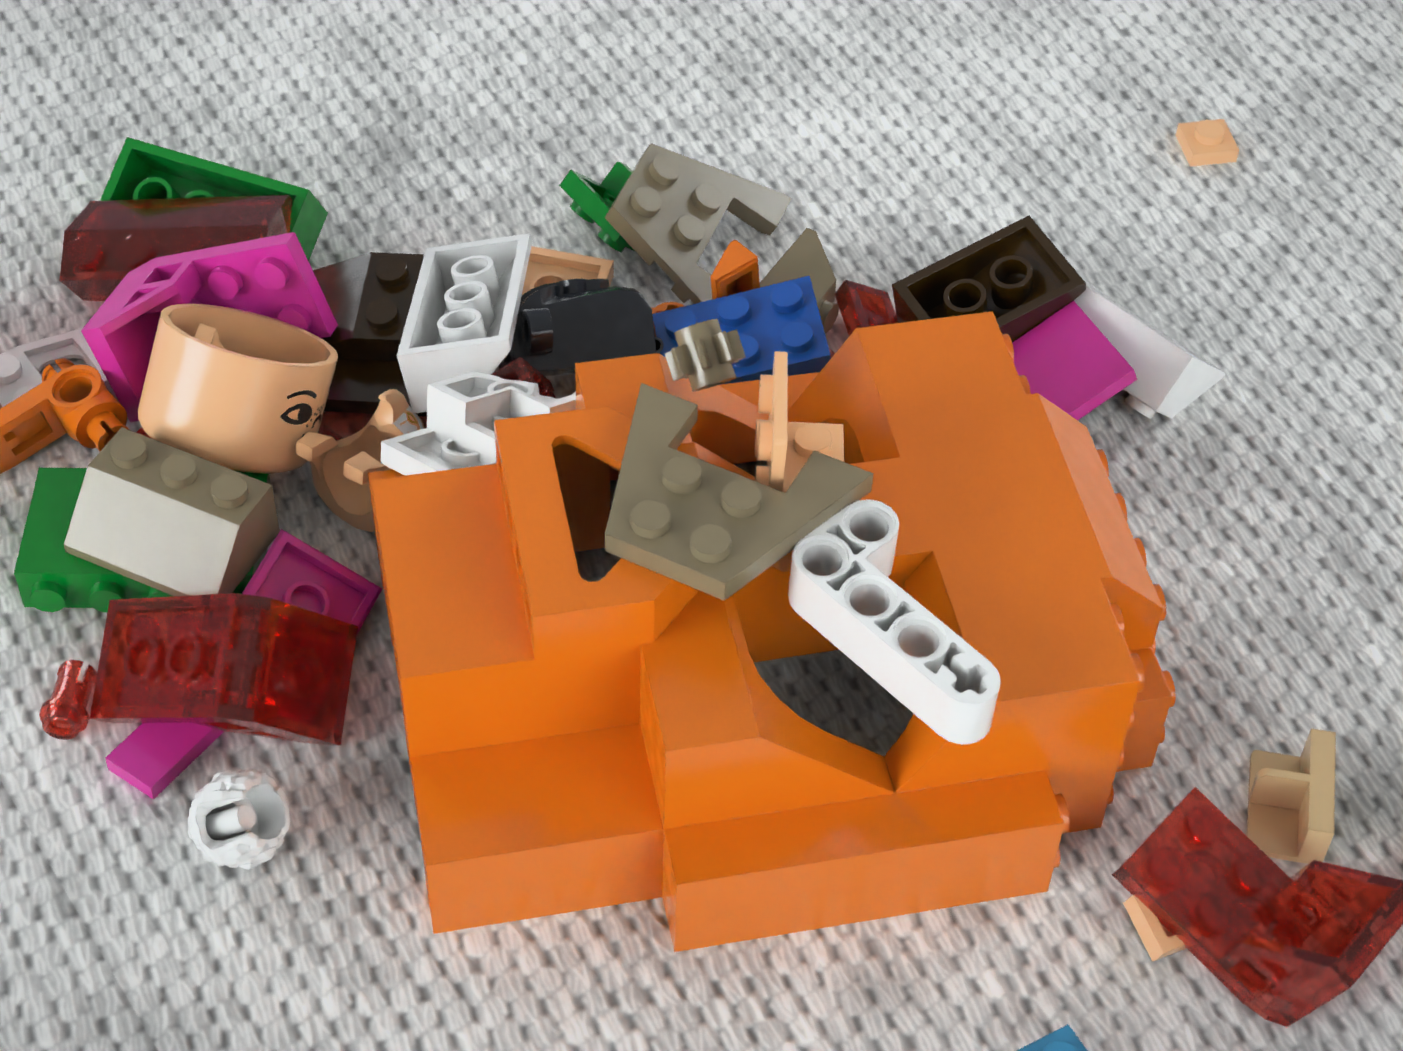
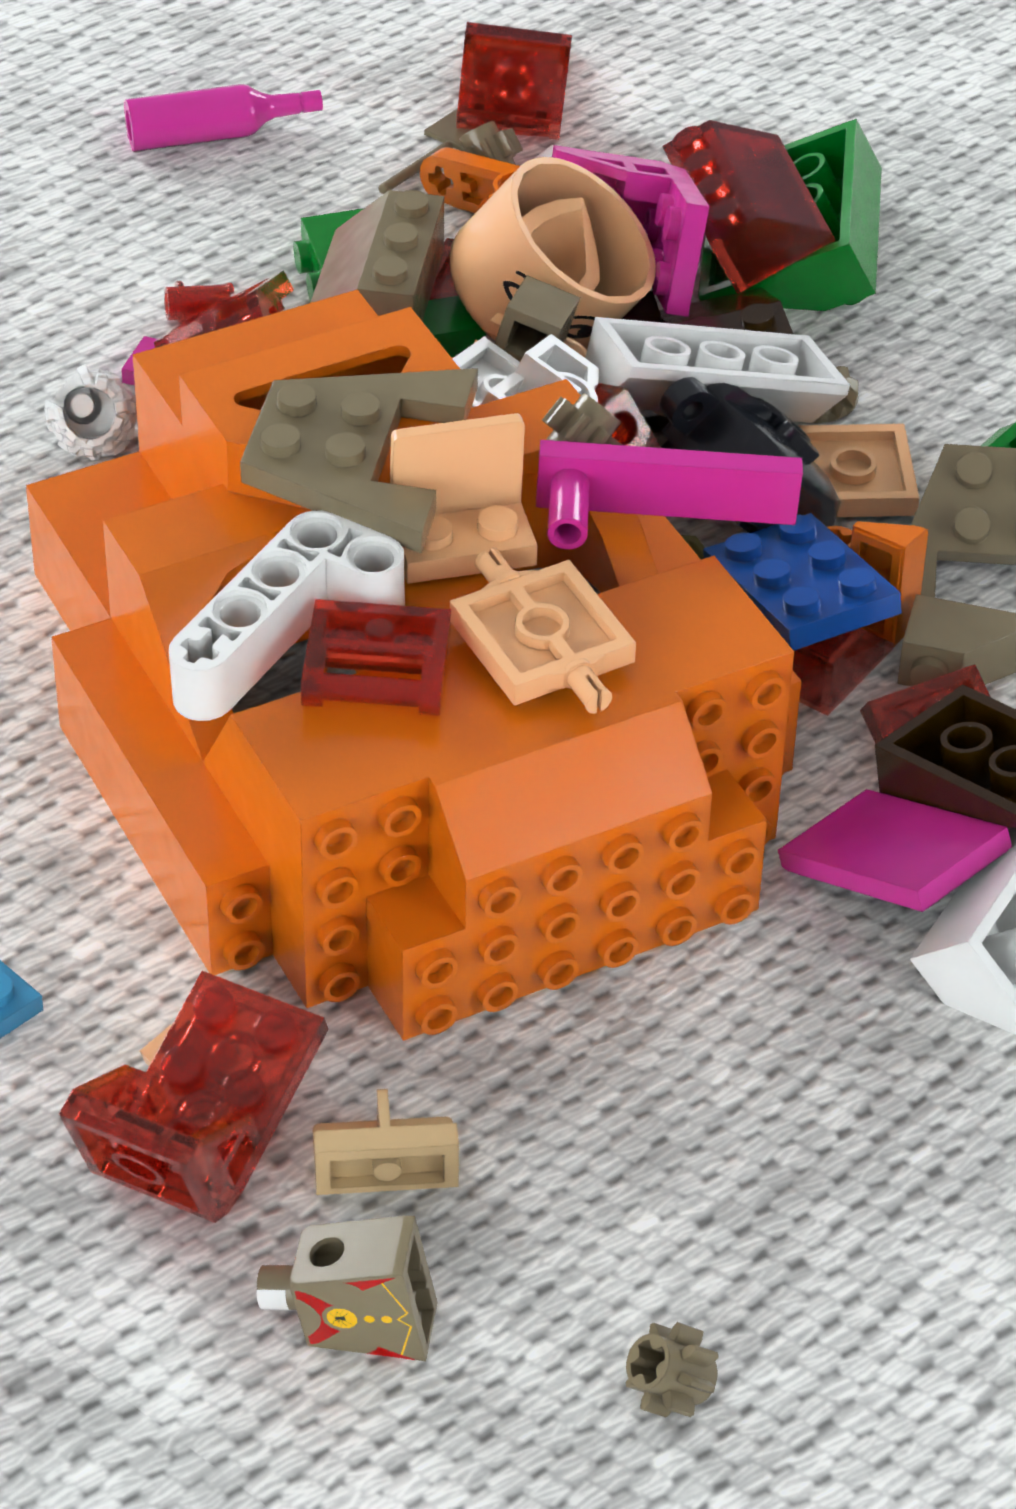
camera: 75 degrees right, 5 degrees down
(359, 409) = (534, 315): none -> dark tan brick
(781, 330) = (661, 483): none -> dark pink piece
(944, 557) = (376, 640): none -> clear red plate
(959, 449) = (542, 631): none -> light nougat plate

